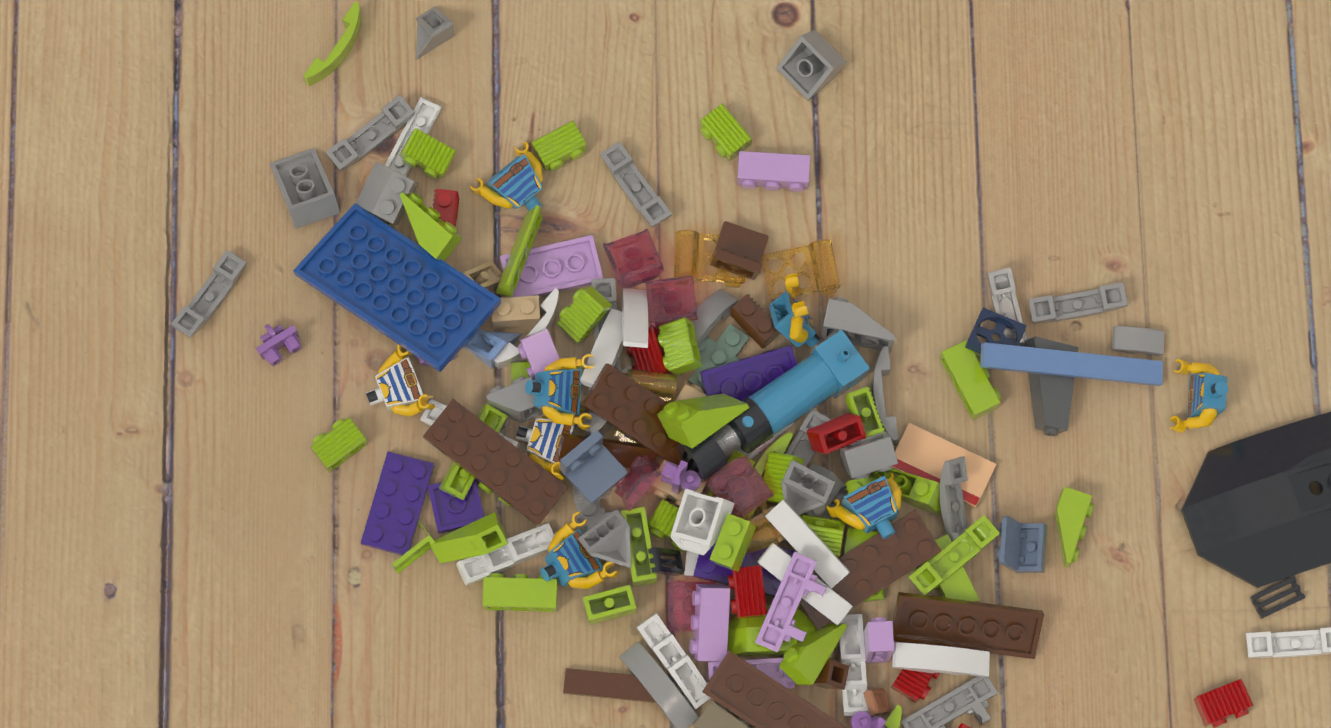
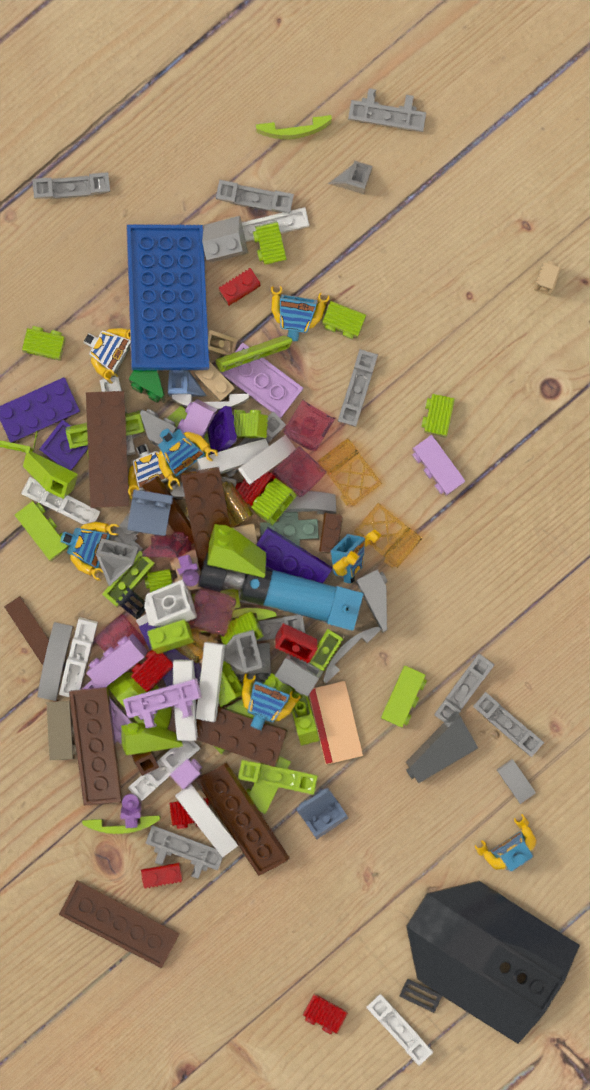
camera: 55 degrees right, 10 degrees up
(287, 338) = (67, 252): medium lavender hips -> none
(305, 188) = (186, 186): light grey slope -> none
(431, 232) = (218, 288): lime slope -> none
(465, 372) = (149, 383): none -> green slope
(570, 337) = (222, 430): none -> dark purple plate
(609, 605) = (78, 591): lime brick -> none
(739, 250) = (368, 487): reddish brown bracket -> none
(811, 64) = (529, 432): light grey slope -> none
(877, 701) = (152, 801): nougat tile -> none
(951, 497) = (315, 747): light grey slope -> none
(1002, 322) = (432, 708): dark blue piece -> none
(1069, 518) = (366, 827): lime slope -> none
(1071, 364) = (462, 753): medium blue tile -> none

